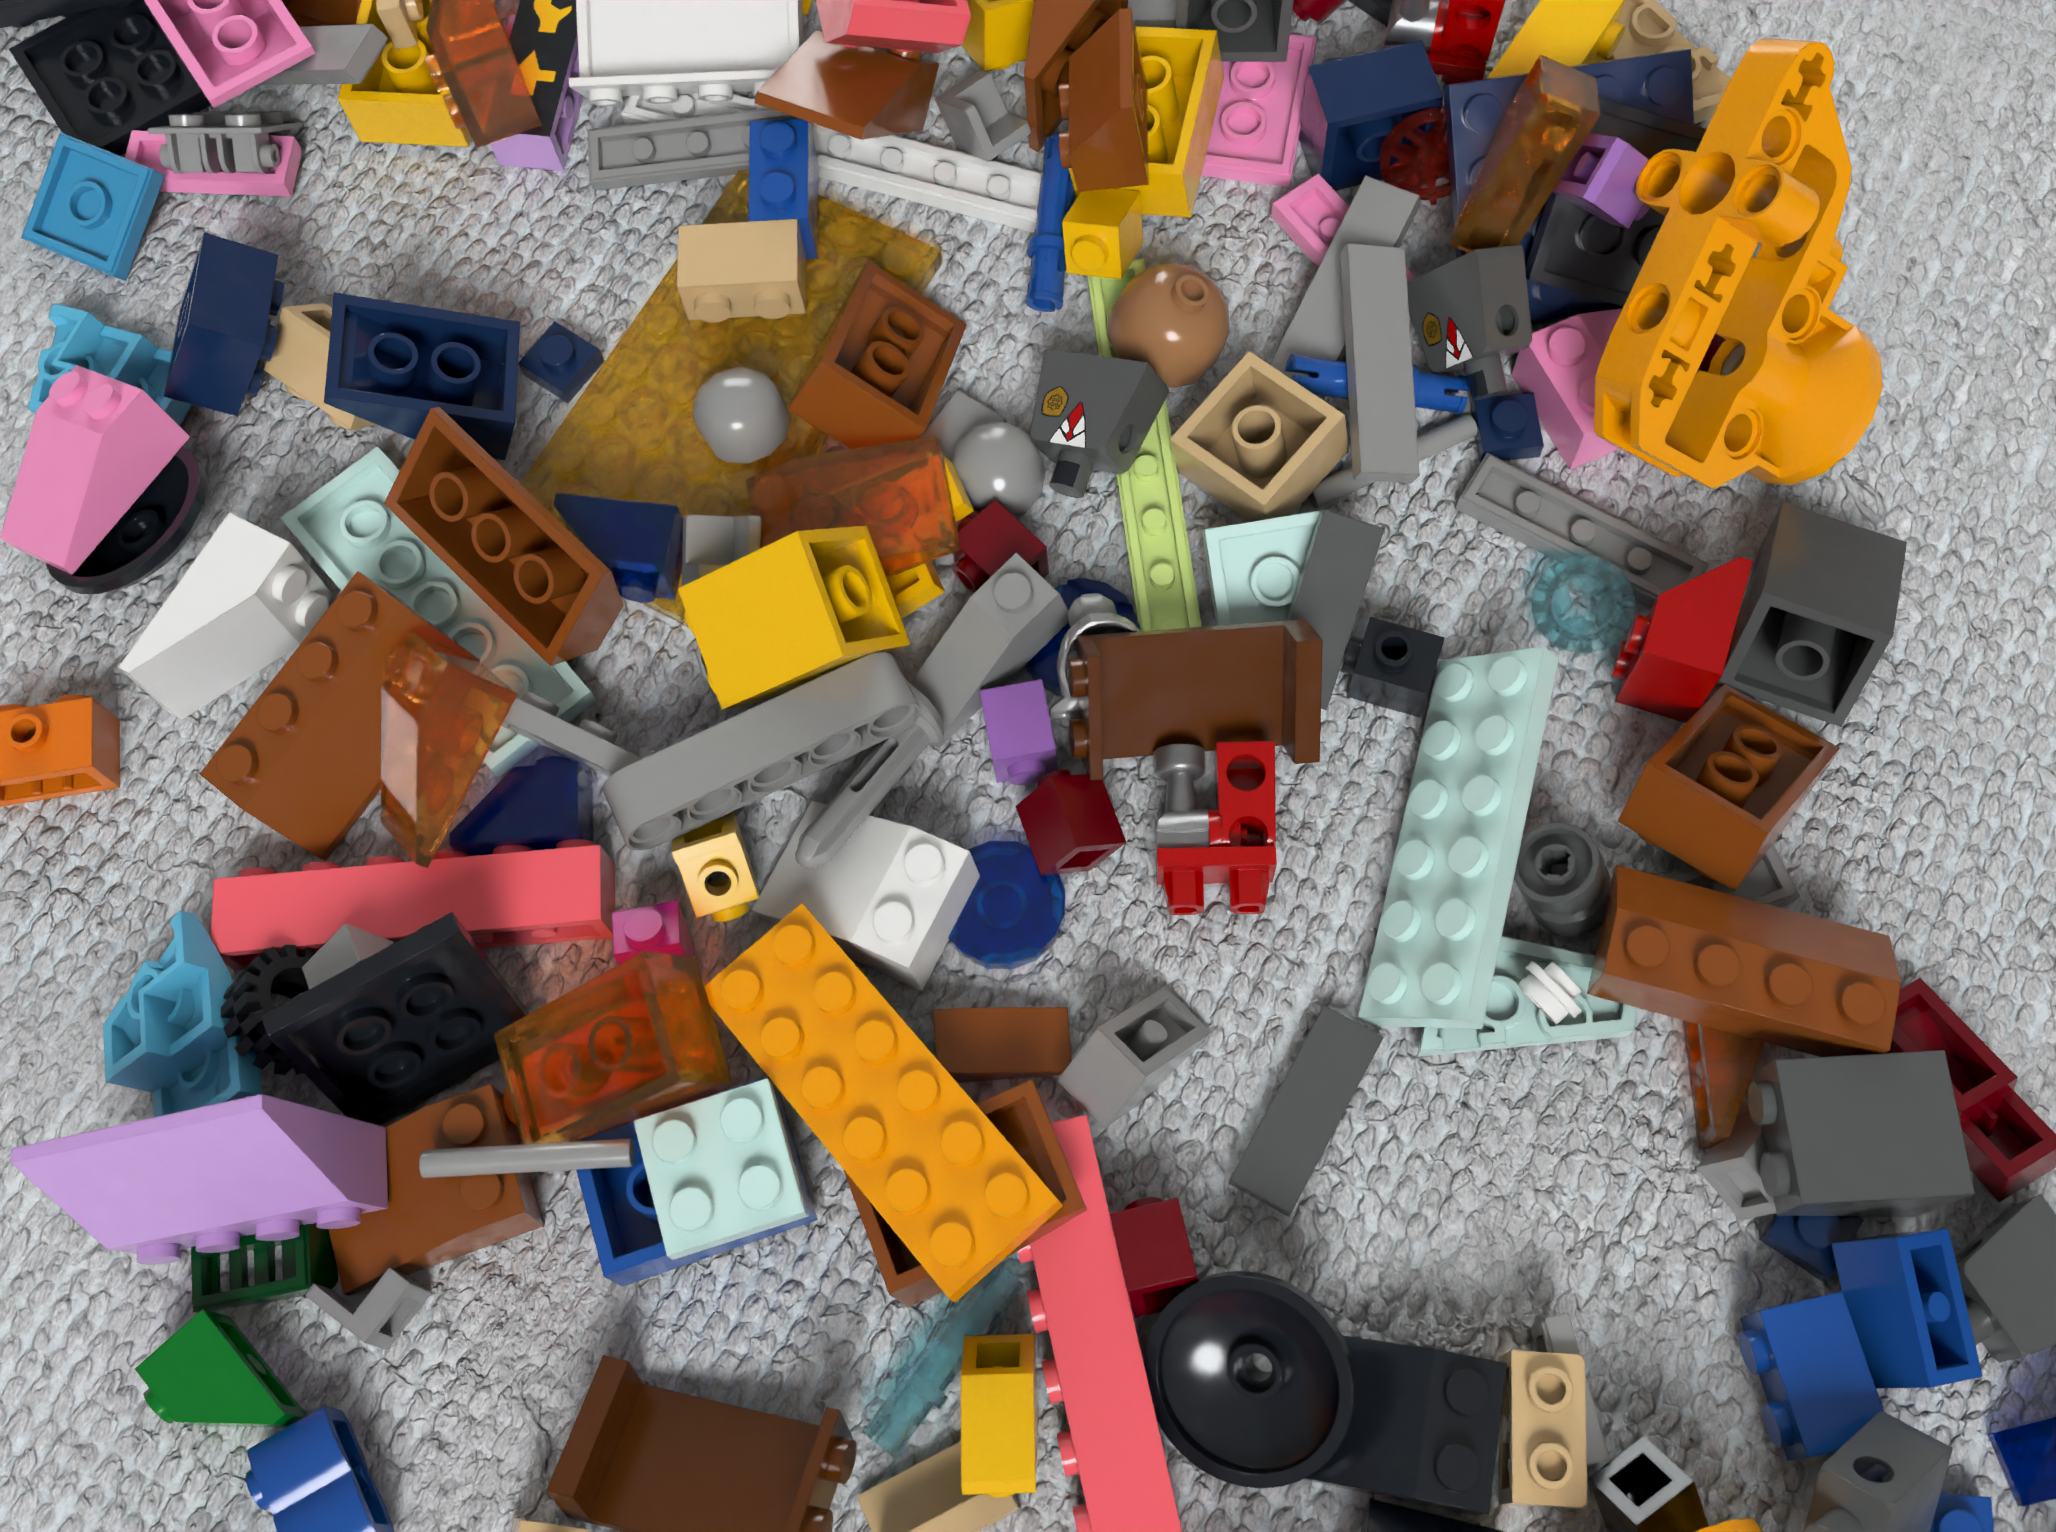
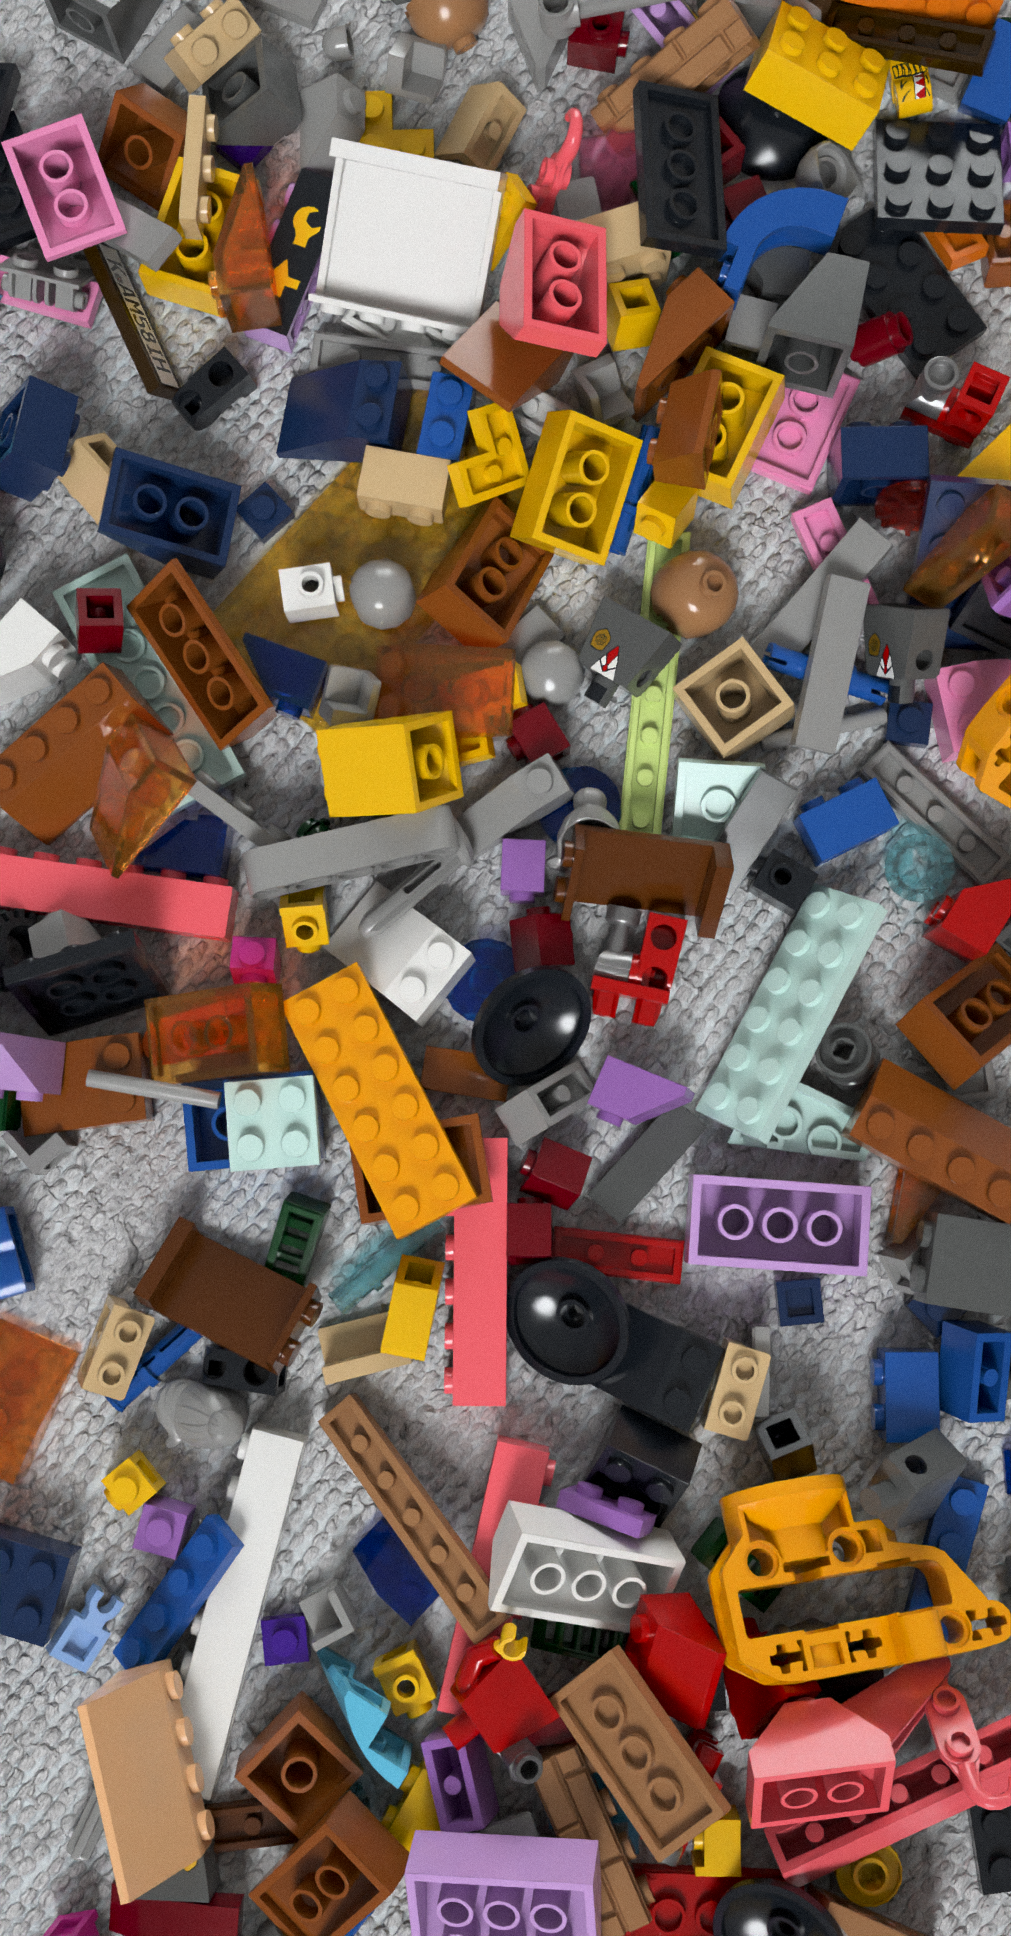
camera: 10 degrees right, 15 degrees up
(344, 171) = (132, 320): none -> tile
(348, 538) = (99, 620): none -> dark red brick
(465, 226) = (212, 390): none -> black leg
(631, 211) = (344, 409): none -> dark blue slope
(640, 431) = (310, 592): none -> white brick
(819, 1363) = (306, 1207): none -> dark green slope
(861, 214) = (500, 460): none -> yellow plate
(975, 224) = (576, 487): none -> yellow brick
(1108, 944) = (531, 1025): none -> black dish
(1171, 1154) = (554, 1173): none -> dark red brick
(1264, 1007) = (634, 1093): none -> medium lavender slope
(1316, 1259) = (622, 1253): none -> red tile
(1459, 566) = (845, 820): none -> blue brick
(1533, 1152) = (777, 1224): none -> lavender brick
(1551, 991) = (817, 1128): white plate -> none
(1599, 1269) = (799, 1301): none -> dark blue plate

